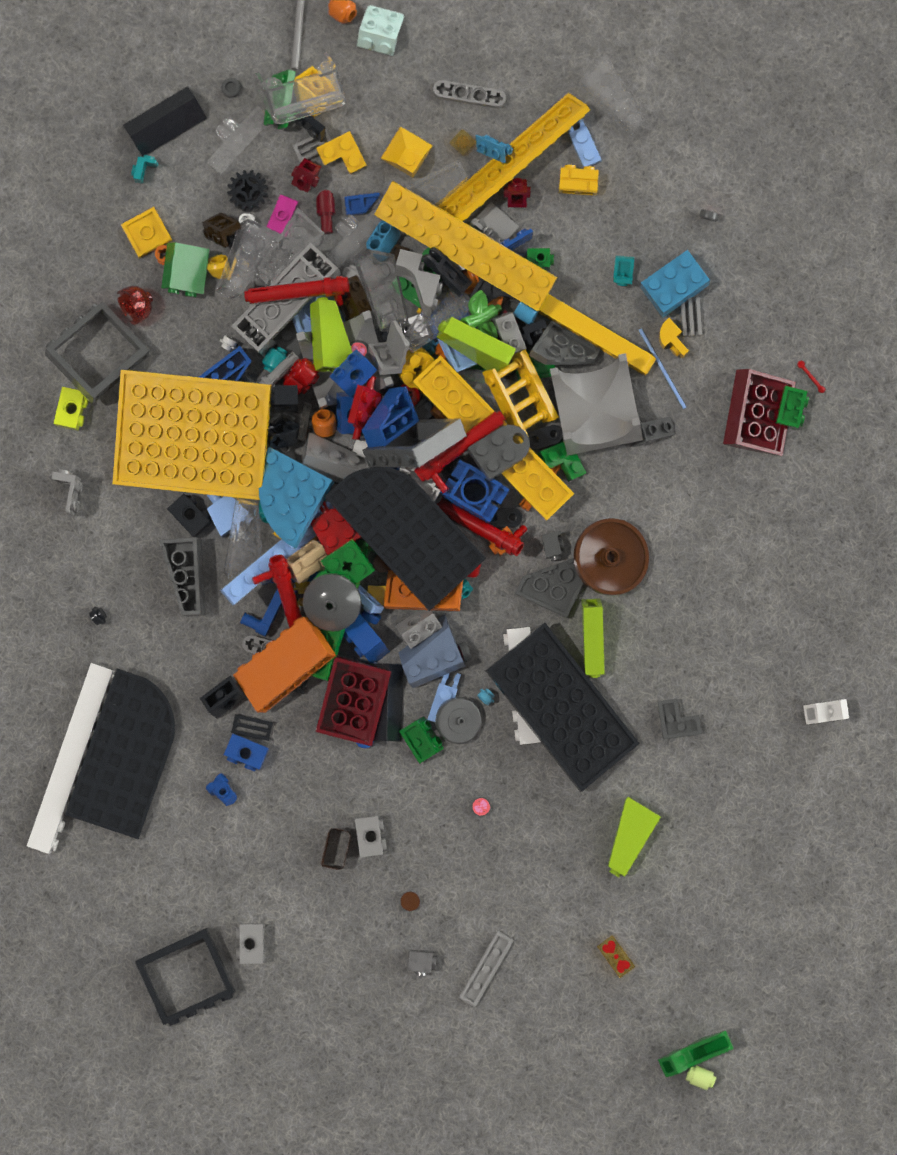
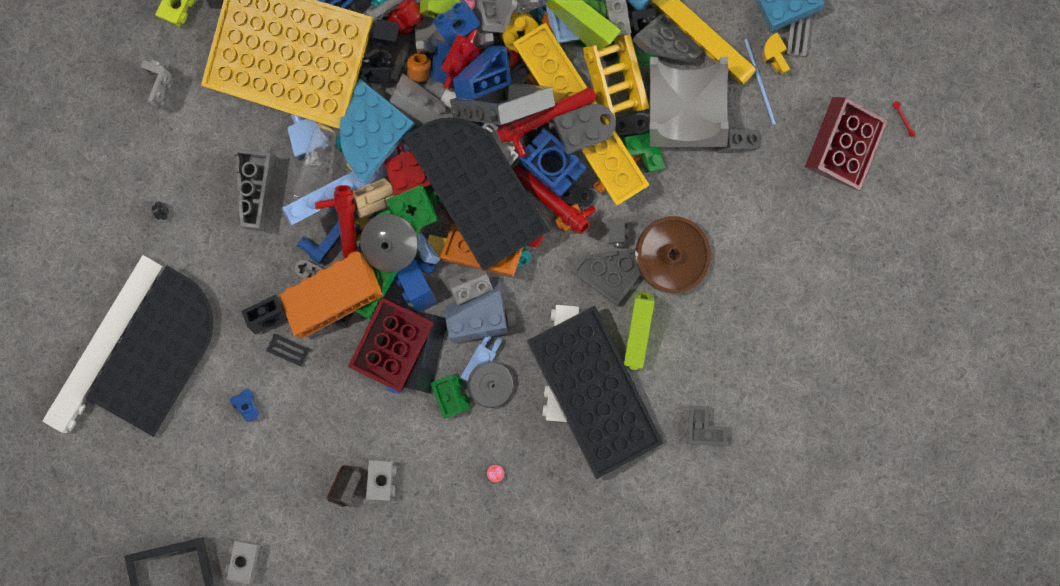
camera: 10 degrees right, 0 degrees up
(179, 509) = (264, 120): black brick -> none
(234, 748) = (268, 364): blue brick -> none
(410, 901) = (407, 551): reddish brown tile -> none
(486, 696) = (522, 366): medium azure plate -> none
(632, 833) = (637, 531): lime slope -> none
(791, 407) = (879, 144): green bracket -> none
(826, 711) = (853, 449): white brick -> none

